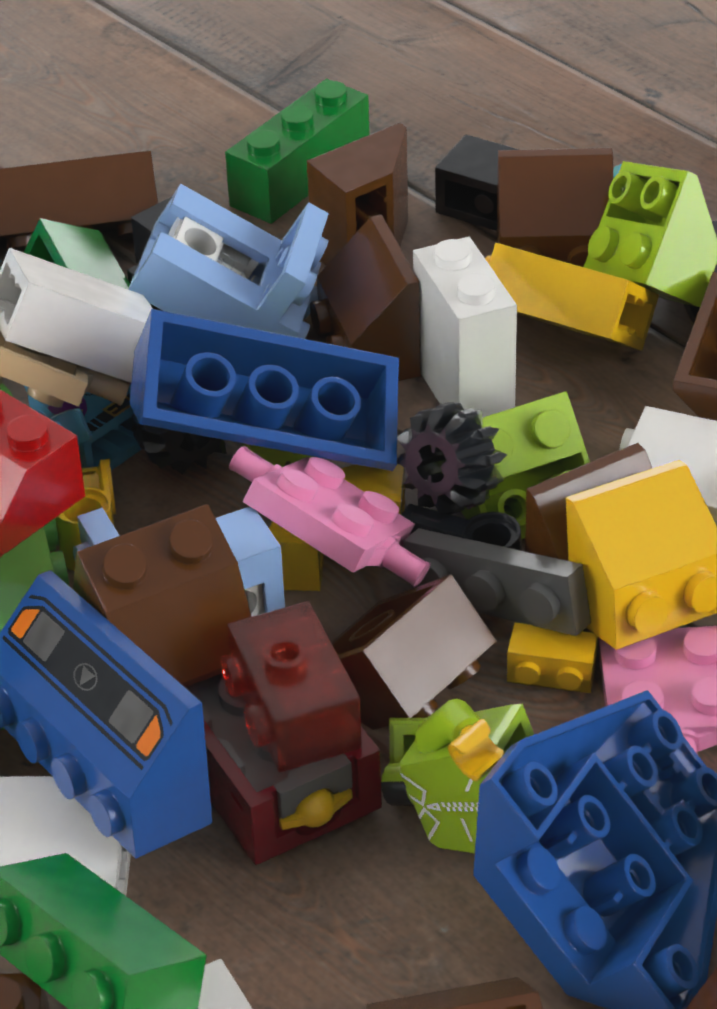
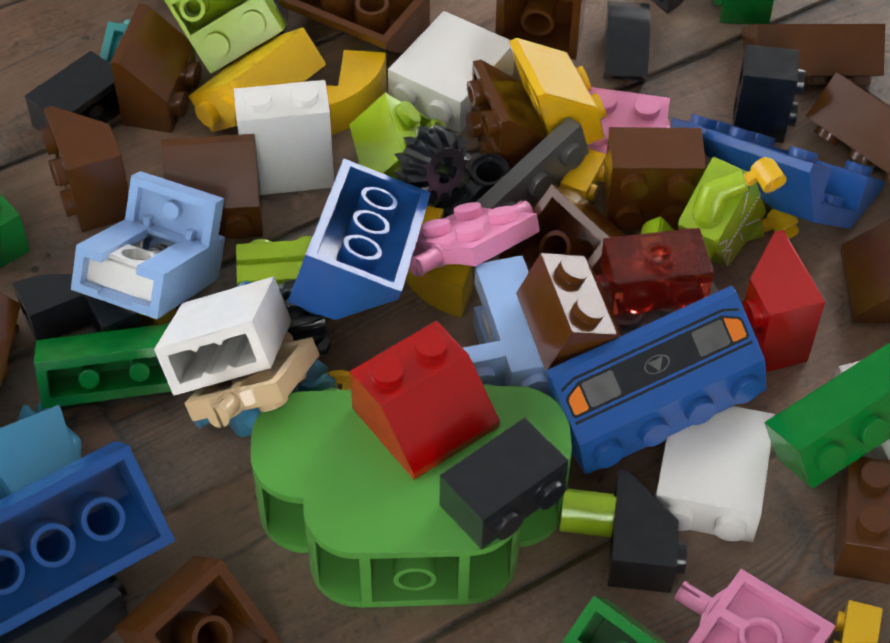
camera: 80 degrees left, 10 degrees up
(323, 869) = (783, 305): none -> red slope
(532, 660) = (650, 174): none -> reddish brown brick
(602, 397) = (360, 85): none -> yellow brick

